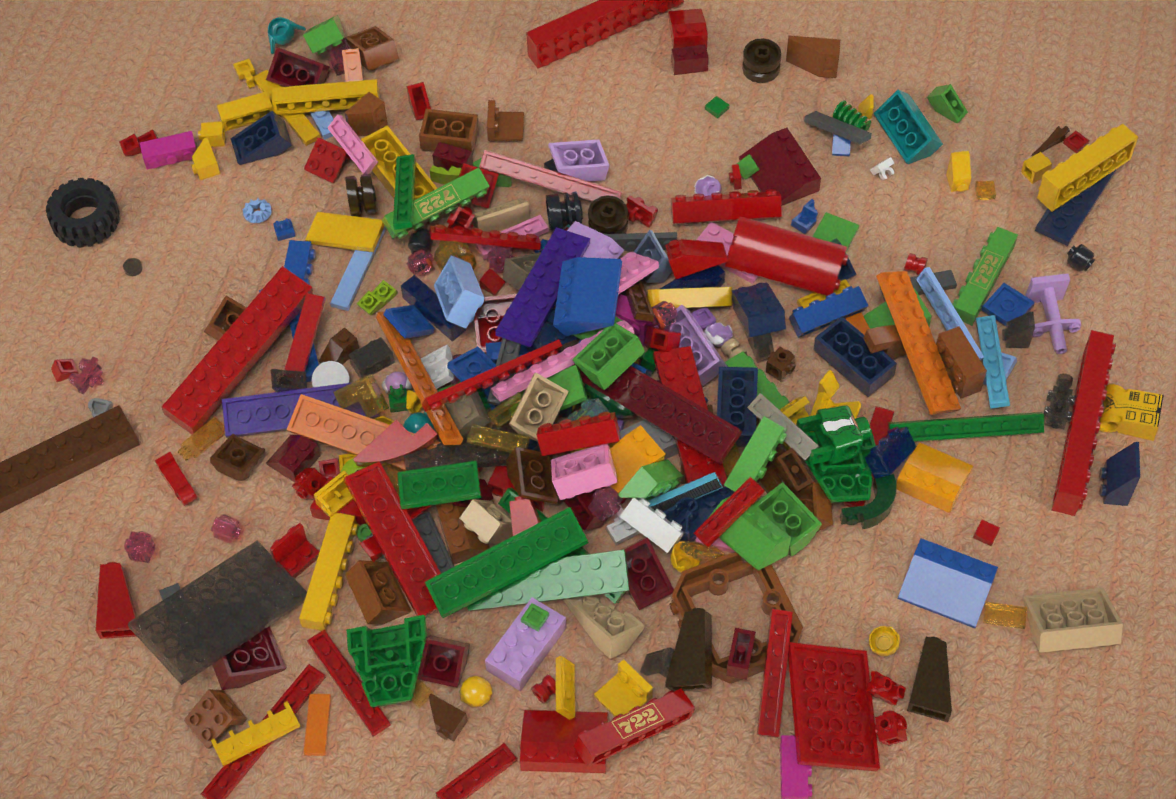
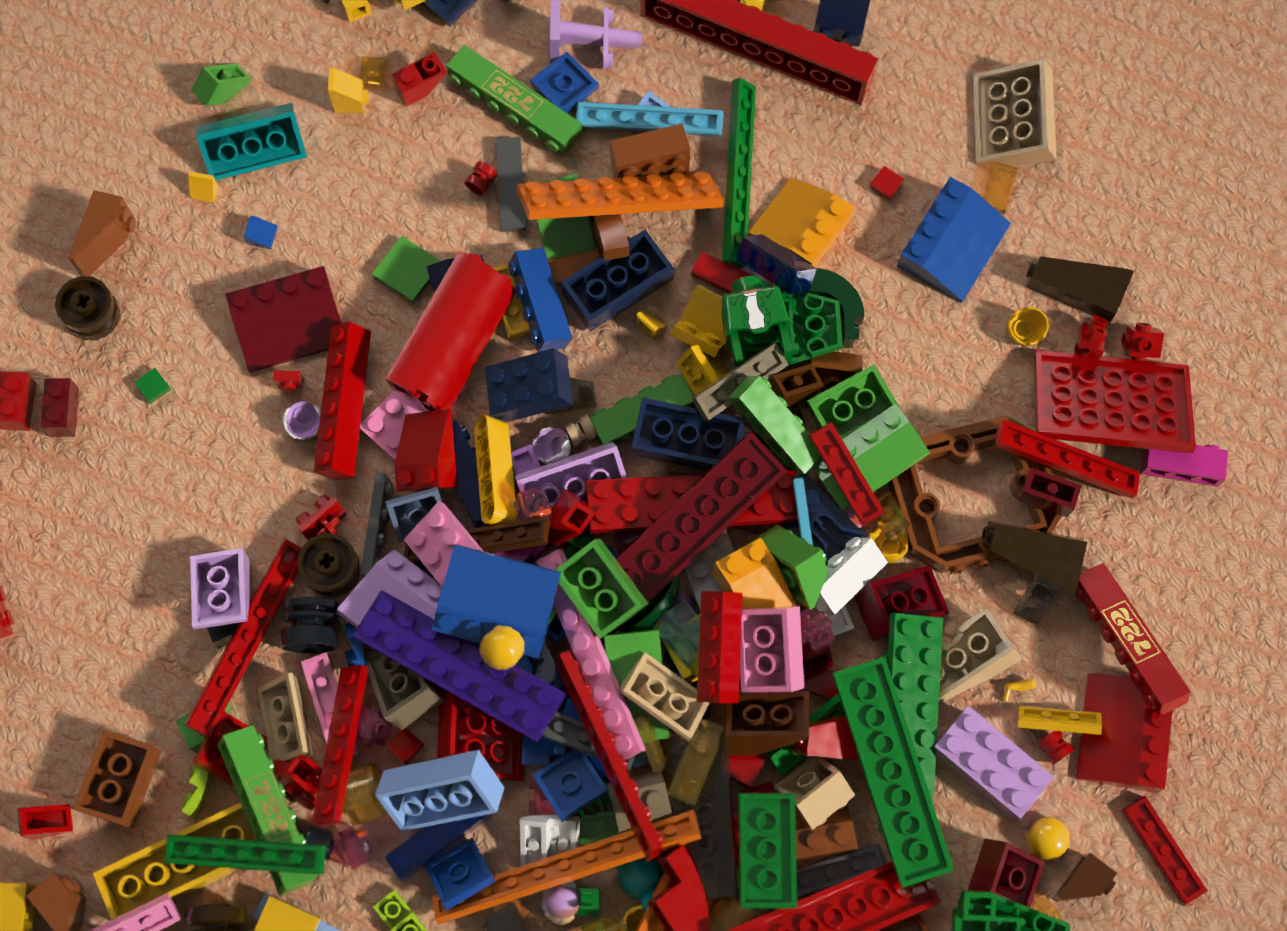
camera: 85 degrees left, 15 degrees up
(413, 403) = (598, 881): yellow slope -> none
(449, 155) = (169, 780): dark red brick -> none
(504, 125) = (118, 693): dark orange bracket -> none
(535, 617) = (971, 744): bright green tile -> none
(554, 297) = (502, 648): none -> yellow hair
(590, 663) = (1023, 685): none -> yellow piece
(624, 691) = (1069, 649): yellow bracket -> none
(747, 167) = (272, 360): bright green tile -> none
(780, 363) = (612, 374): reddish brown brick -> none
(806, 219) = (374, 301): blue slope -> none
(837, 127) = (235, 229): dark grey tile -> none
(850, 115) = (220, 210): green piece -> none
(882, 167) = (312, 187): white tile -> none
(943, 305) = (561, 157): light blue tile -> none
(982, 212) = (418, 78): none -> red slope
(1019, 331) = (612, 76): clear smoke slope -> none
(1060, 400) = (728, 57): clear smoke brick -> none

